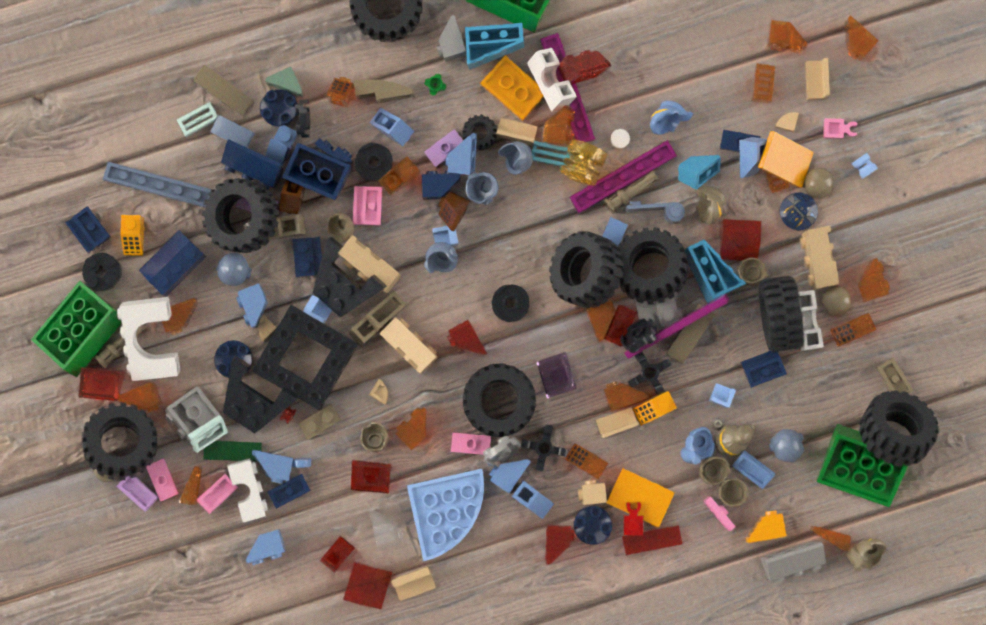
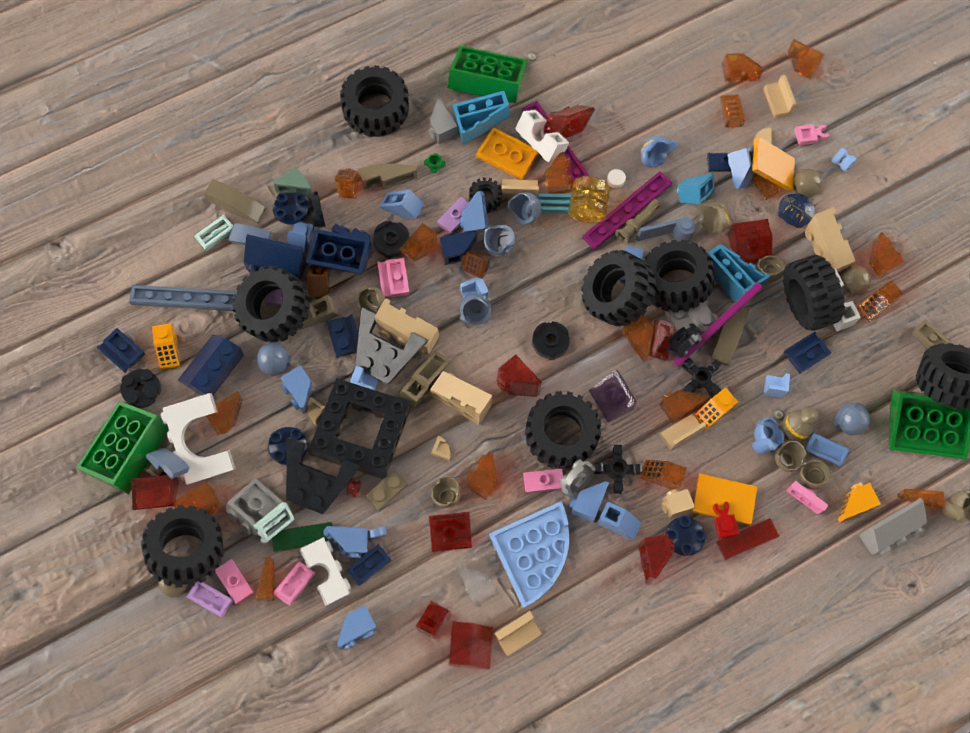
camera: 15 degrees left, 15 degrees down
(118, 358) = (169, 462): none -> sand blue slope

